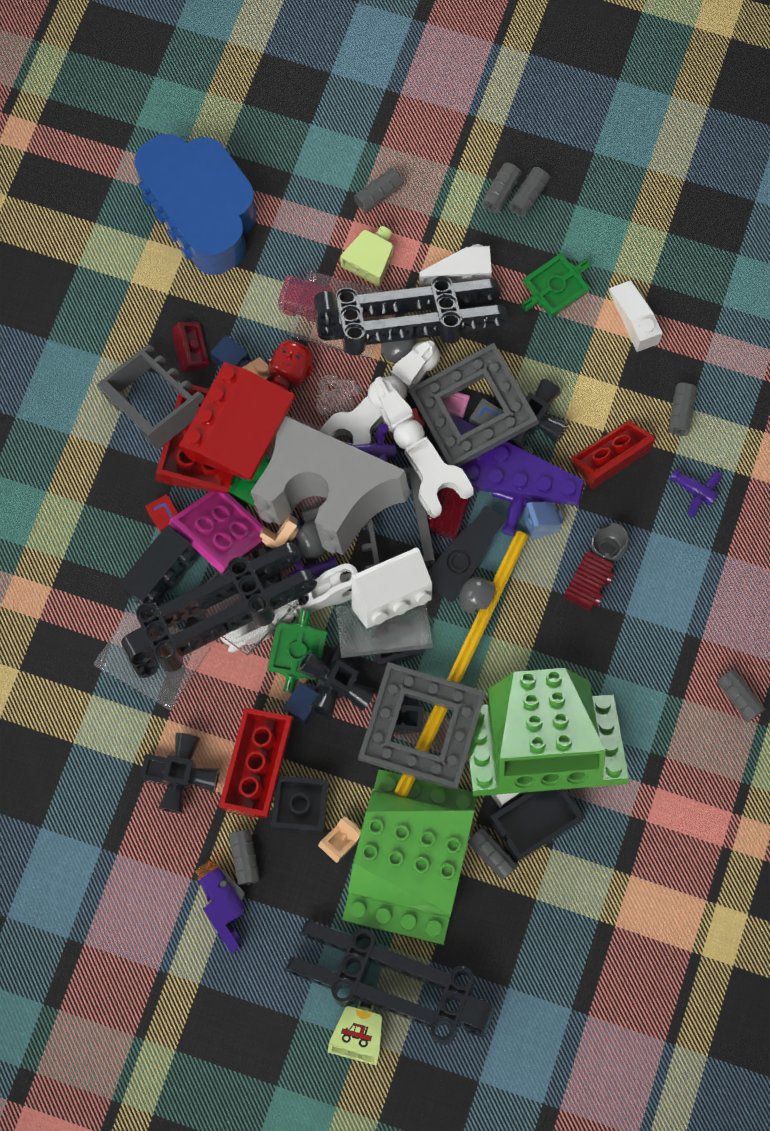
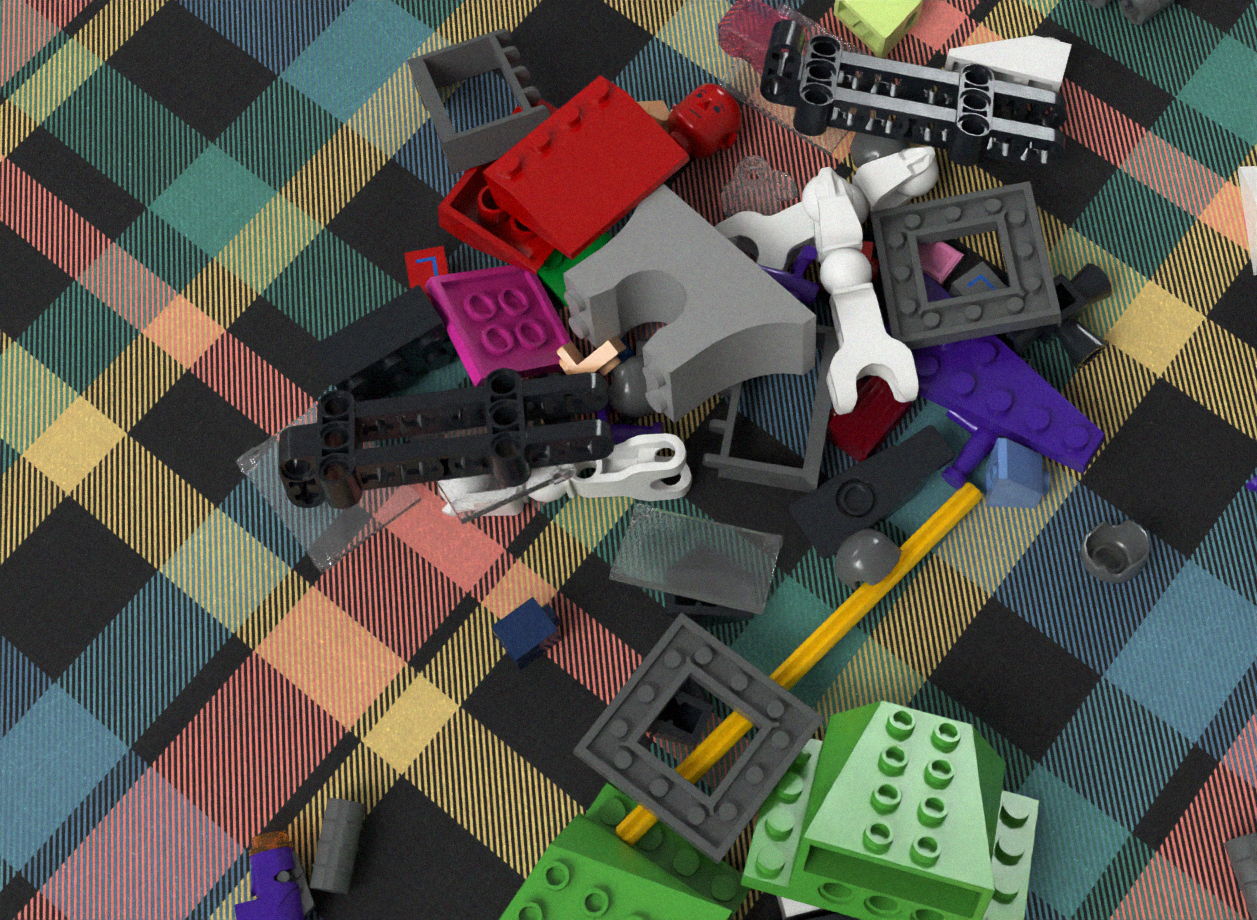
camera: 25 degrees right, 5 degrees down
(178, 773) = (291, 673): black brick -> none
(190, 346) = (567, 55): dark red slope -> none
(229, 352) = (623, 73): dark blue brick -> none
(255, 763) = (410, 699): red slope -> none
(291, 644) = (548, 546): green plate -> none
(300, 805) = (457, 794): black brick -> none
(334, 682) = (587, 617): black brick -> none
(340, 839) = (499, 875): light nougat bracket -> none
(391, 588) = (731, 498): white slope -> none
(556, 285) = (1157, 135): green plate -> none
(589, 581) = (1059, 601): dark red brick -> none
(612, 453) = (1166, 415): red slope -> none

